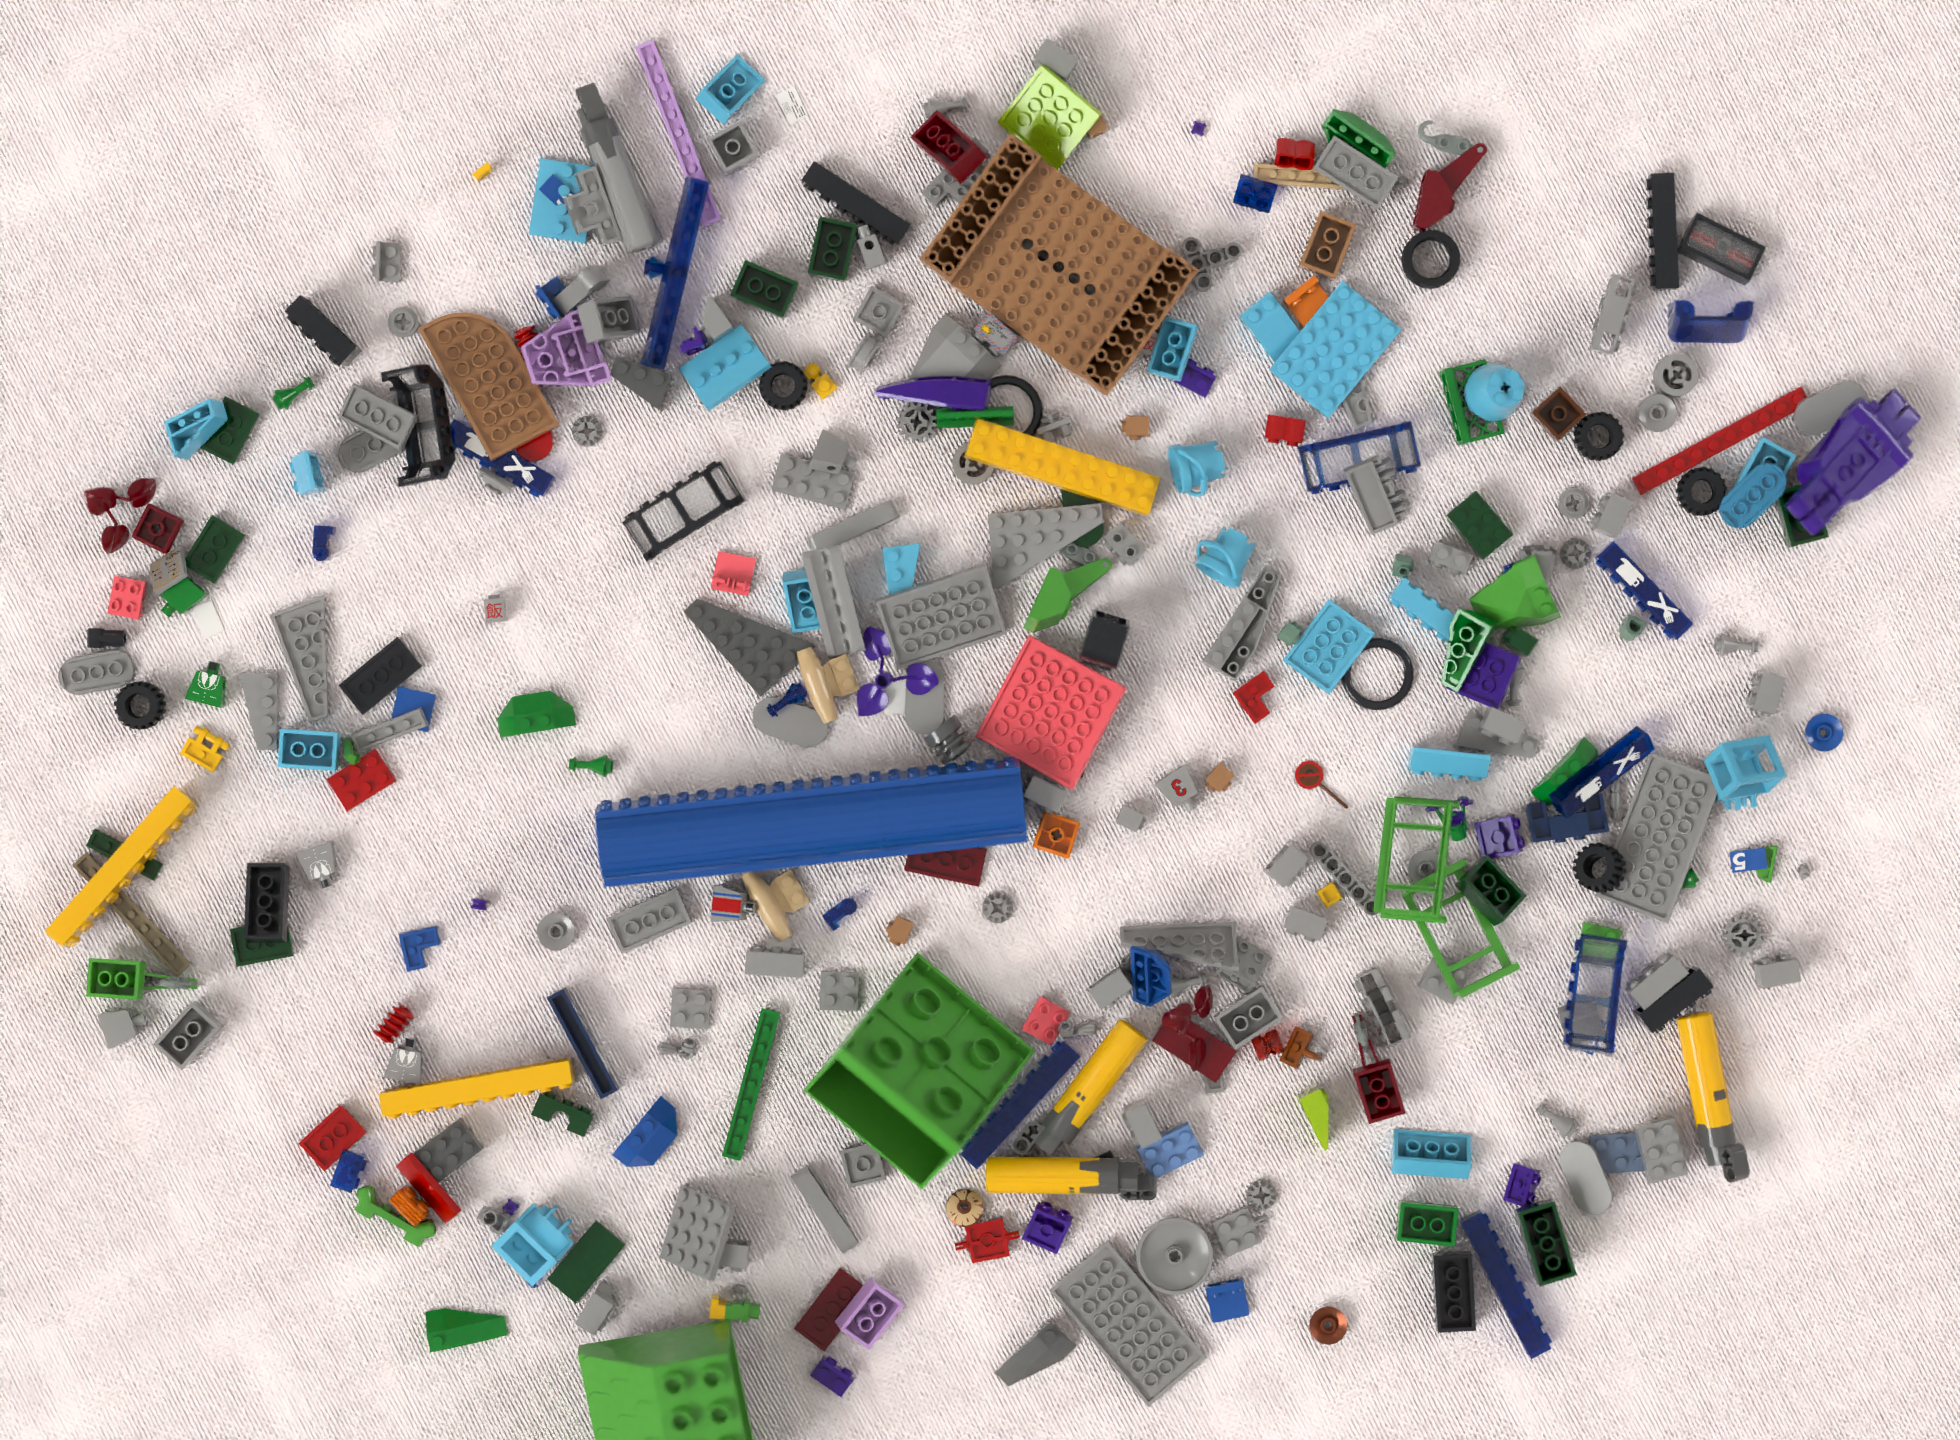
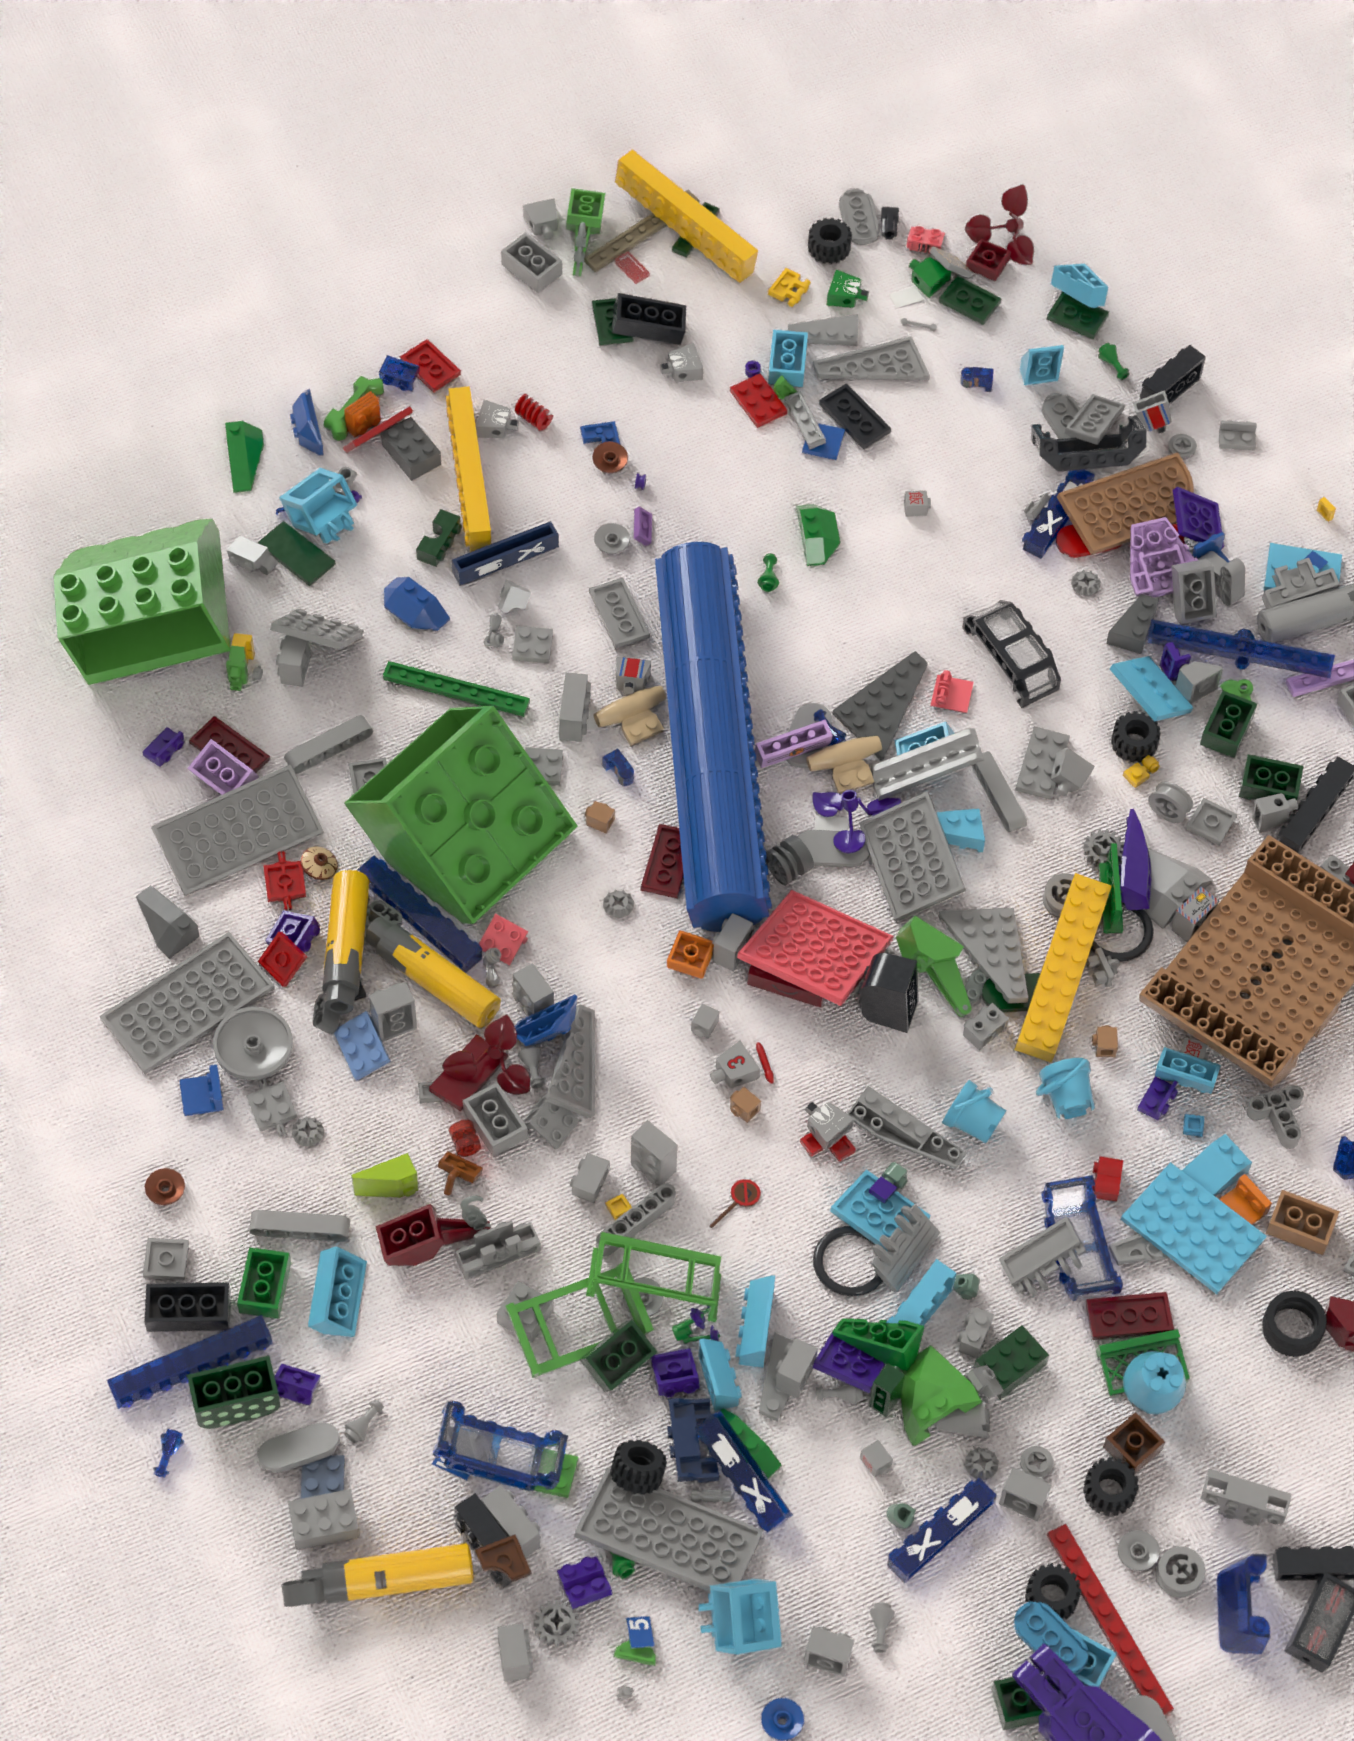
camera: 85 degrees right, 30 degrees down
(182, 923) = (632, 267): none -> clear tile
(250, 590) = (933, 327): none -> light grey hinge
(314, 788) = (749, 366): none -> dark purple bush
(371, 351) = (1154, 412): none -> light grey torso
(418, 1265) = (306, 423): none -> blue wedge
(445, 947) = (611, 451): none -> copper dish
(507, 310) = (1196, 516): none -> dark purple plate
(537, 899) = (642, 526): none -> medium lavender plate
(637, 1031) = (513, 597): none -> brick
(723, 280) = (1234, 688): none -> bright green plate
(813, 737) = (793, 743): none -> lavender brick
(936, 1292) = (237, 830): none -> light grey plate
(1080, 1235) = (282, 959): none -> red tile
(1169, 759) = (765, 1063): none -> red piece
(1221, 344) = (1193, 1125): none -> dark azure tile
(1243, 698) = (828, 1123): none -> light grey torso
(1307, 645) = (882, 1189): none -> dark purple tile
(1363, 1194) = (299, 1225): none -> light grey beam
(1369, 623) = (904, 1247): none -> light grey hinge
(1401, 1316) = (166, 1259): none -> light grey plate
(1426, 411) = (1129, 1315): none -> dark red plate
(1502, 796) = (718, 1374): none -> medium azure slope
(1508, 552) = (984, 1381): none -> light grey brick
(1578, 649) = (876, 1459): none -> light grey brick
(1584, 1294) = (170, 1443): none -> clear blue piece
(1700, 985) = (505, 1557): none -> reddish brown tile
(1707, 912) = (584, 1582): none -> dark purple plate

